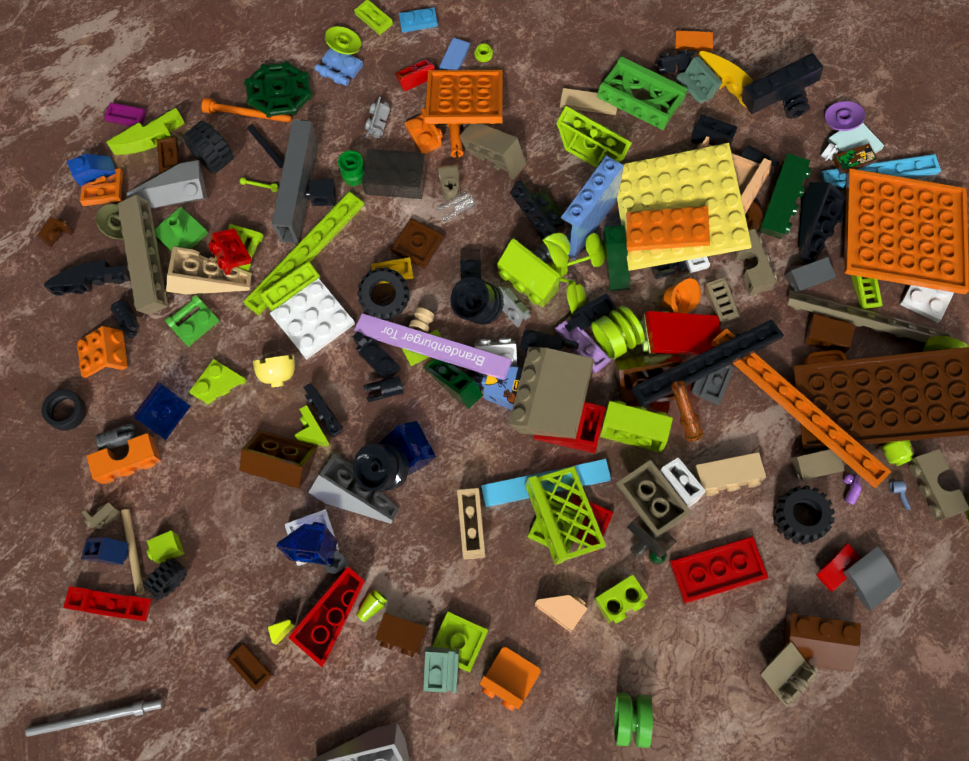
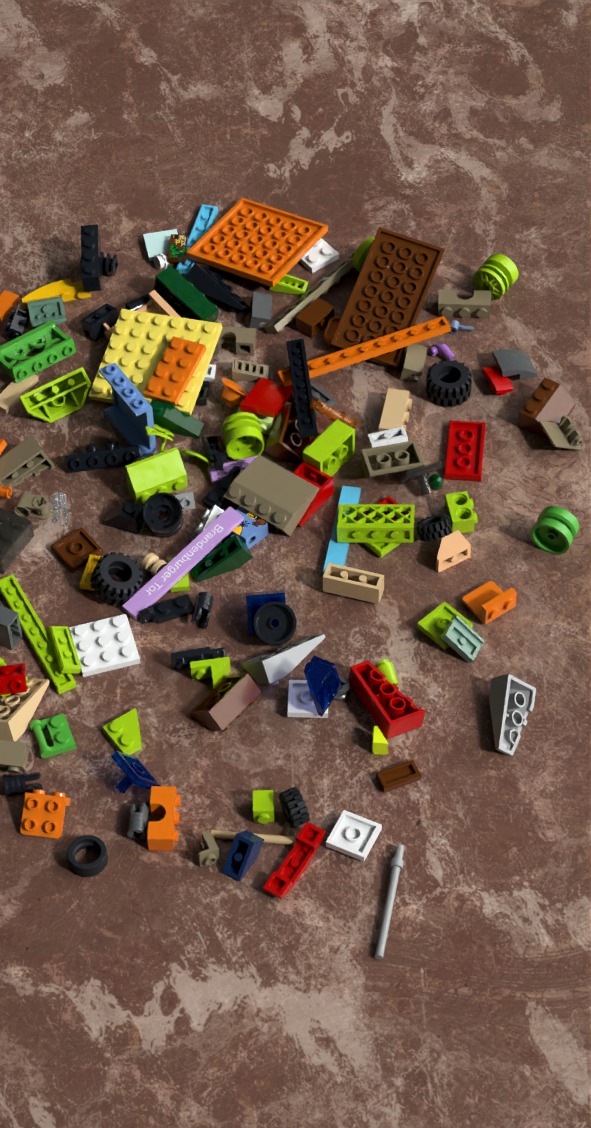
camera: 70 degrees left, 20 degrees down
(159, 650) = (353, 835): none -> white plate
(275, 370) = (142, 679): light yellow cylinder -> none
(401, 634) = (421, 659): reddish brown brick -> none
(577, 587) = (434, 527): none -> black tyre
(844, 116) = (136, 240): medium lavender dish -> none
(898, 452) = (428, 313): lime head -> none

